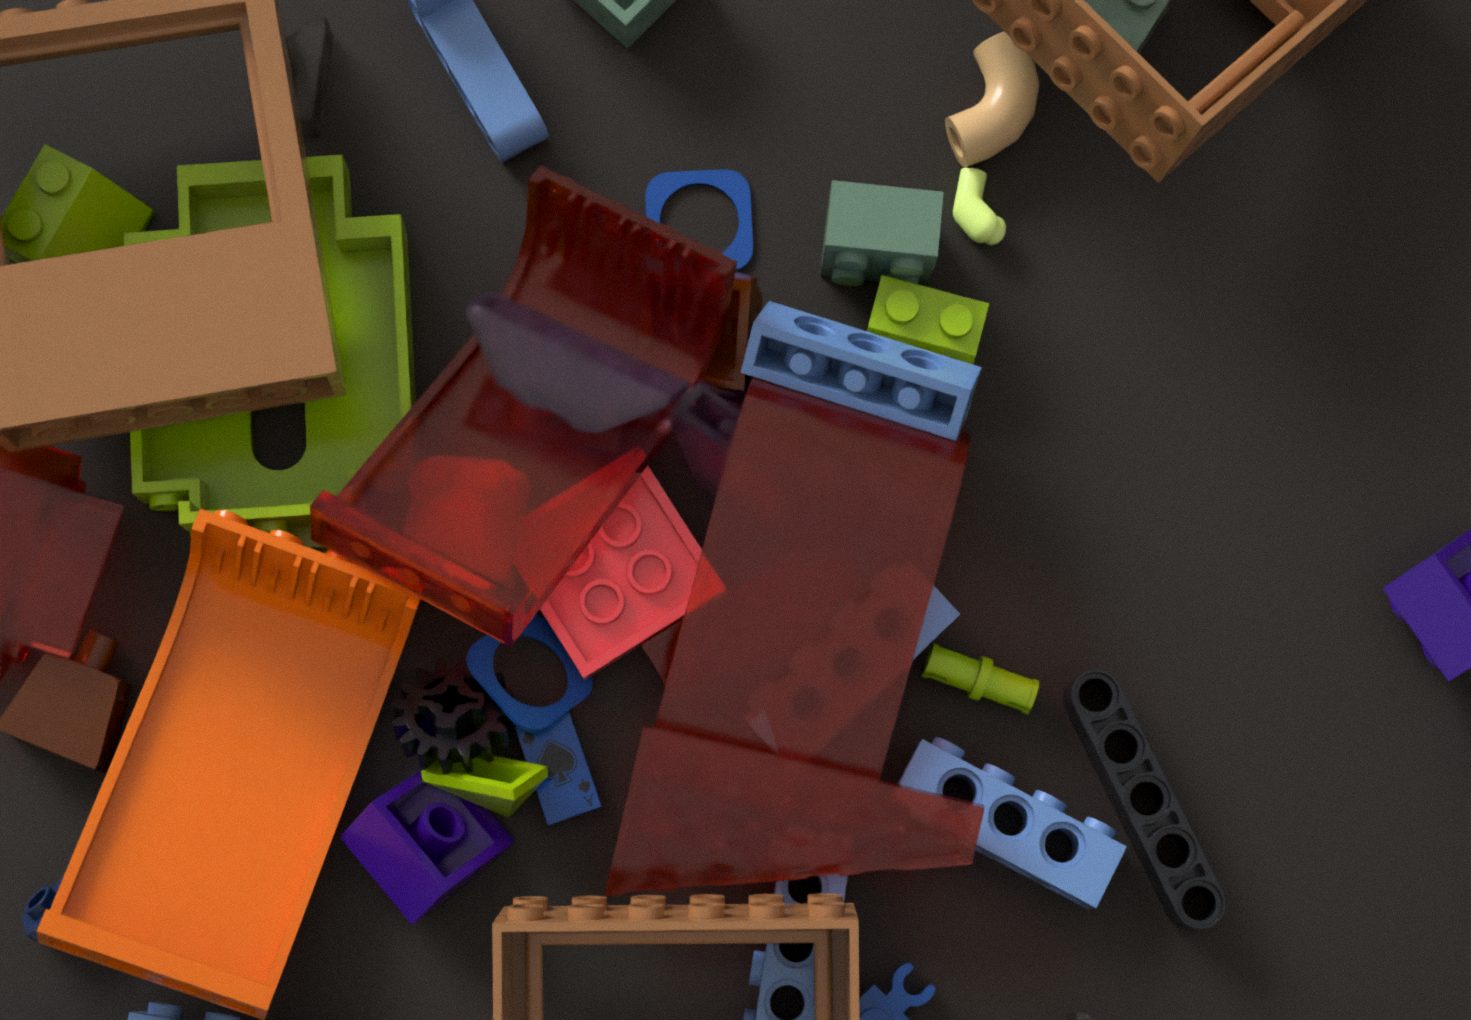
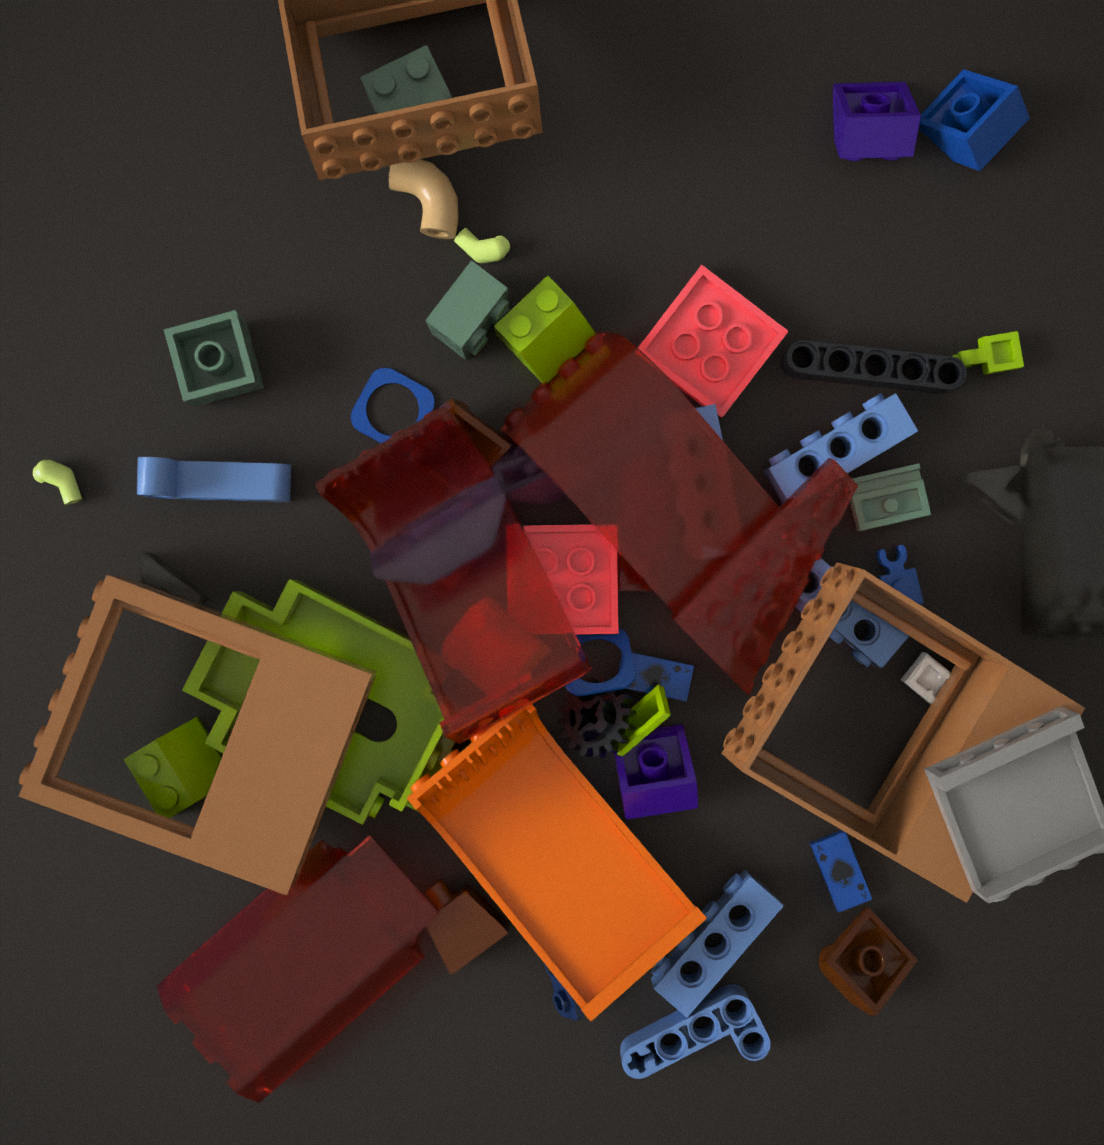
camera: 55 degrees left, 10 degrees up
(861, 370) = (544, 372): medium blue brick -> none
(980, 678) = (752, 413): lime pin -> none
(986, 929) = (889, 498): none -> sand green plate
(1040, 569) = (712, 341): none -> coral plate
(1267, 955) = (995, 353): none -> lime plate

